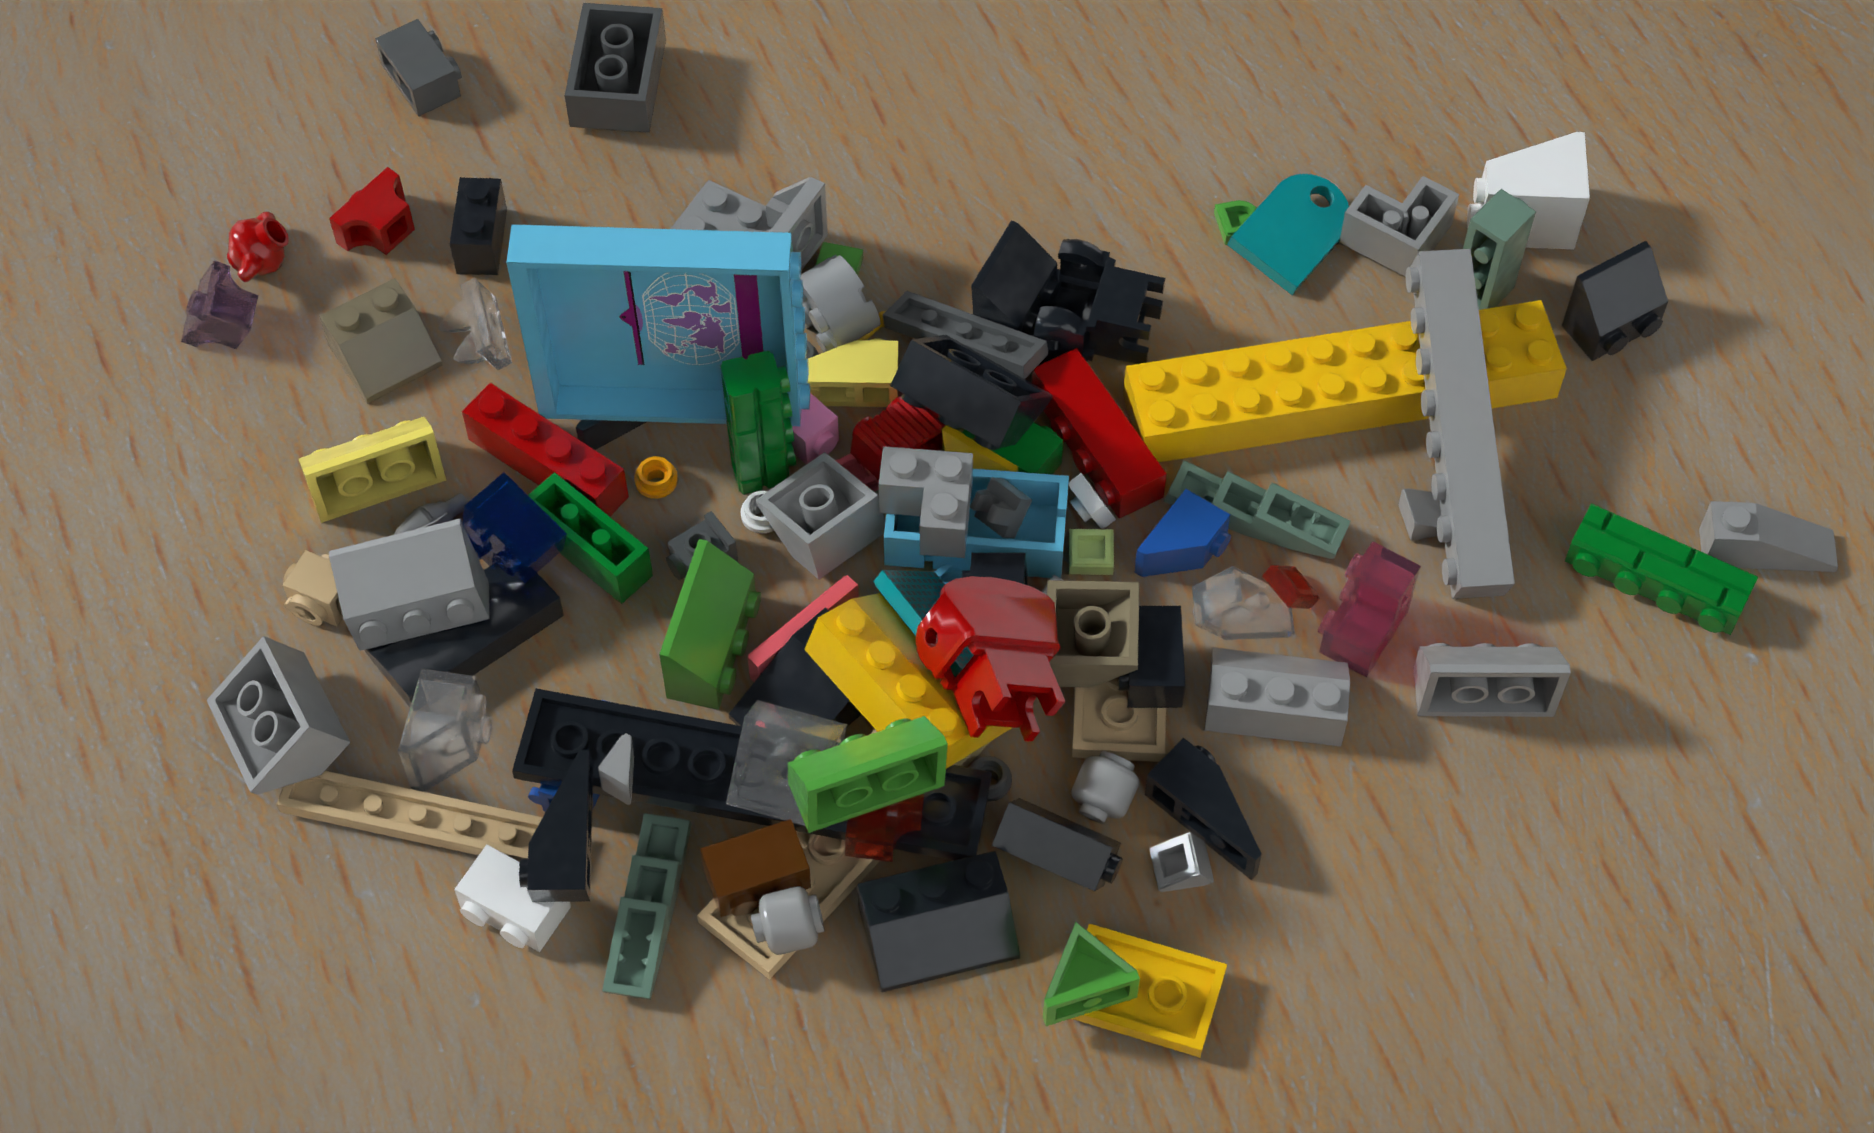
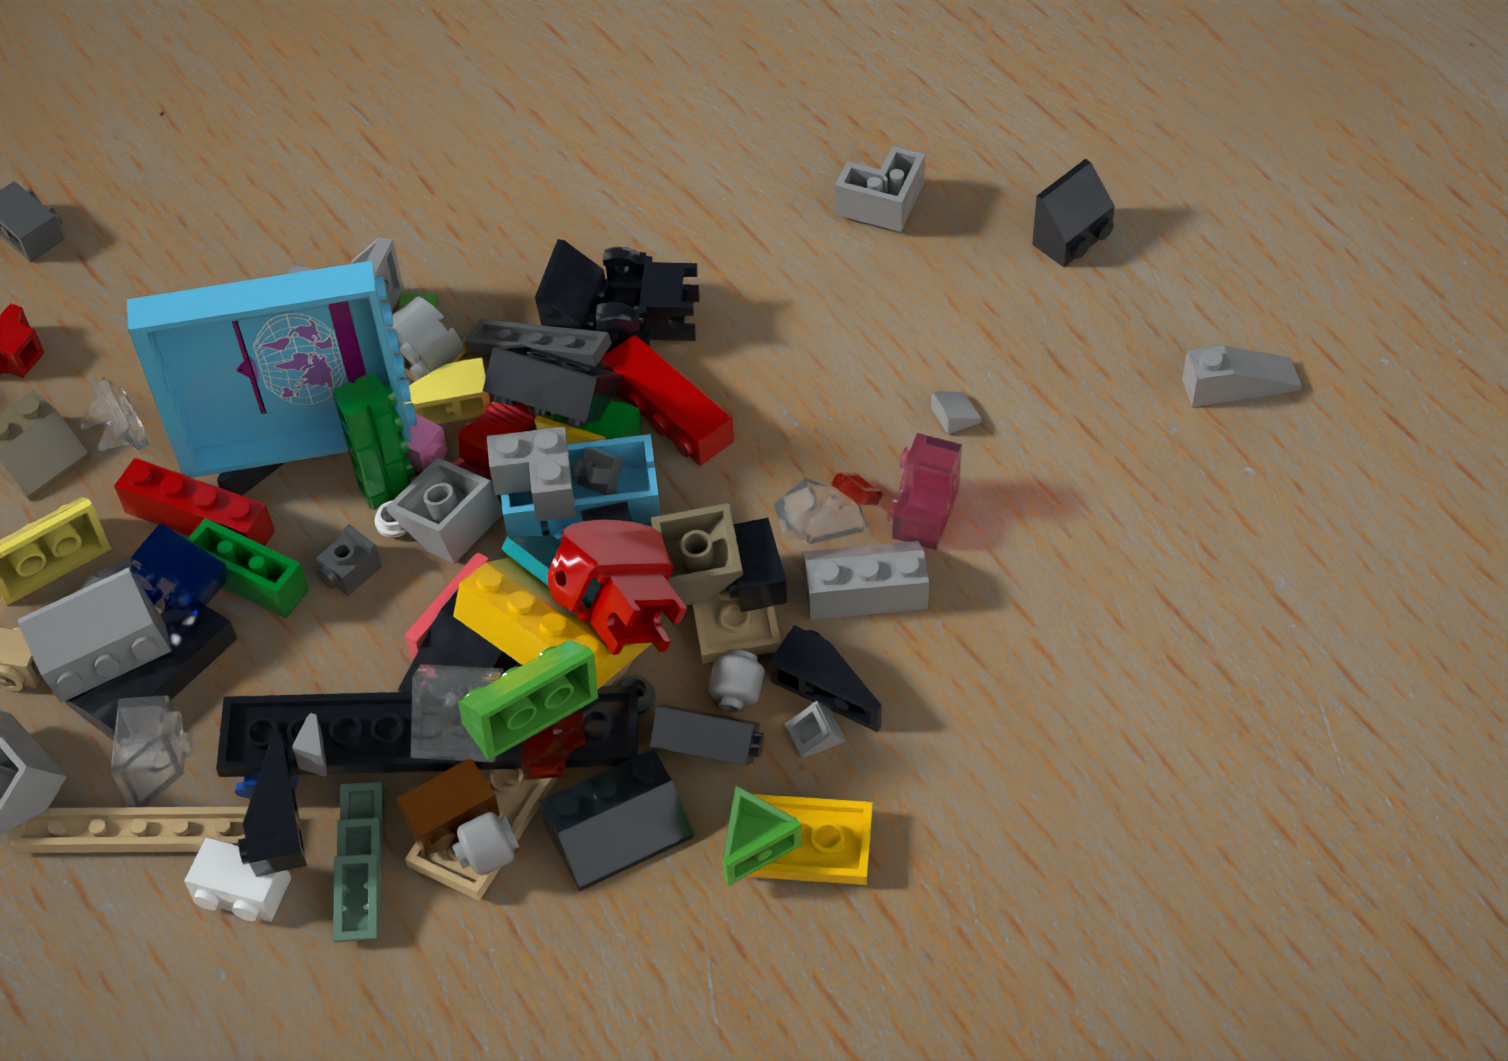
camera: 10 degrees left, 5 degrees down
(478, 226) = (99, 337): black brick -> none
(615, 67) = (194, 189): dark grey brick -> none
(655, 468) = (293, 502): light orange plate -> none
(708, 628) = (366, 620): bright green slope -> none
(1088, 502) = (672, 456): white plate -> none
(1091, 551) = (682, 494): yellowish green tile -> none
(1184, 537) = (758, 467): blue slope -> none
(1232, 216) = (746, 214): bright green tile -> none
(1265, 514) = (814, 437): sand green slope -> none
(1291, 233) = (792, 214): teal tile -> none
(1324, 384) = (863, 319): yellow brick -> none
(1460, 424) = (968, 331): light grey brick -> none
(1489, 680) = (1039, 529): light grey slope -> none
(1497, 246) = (963, 193): sand green brick -> none
(1550, 181) = (985, 146): white slope -> none
(1660, 570) = (1158, 415): green brick -> none

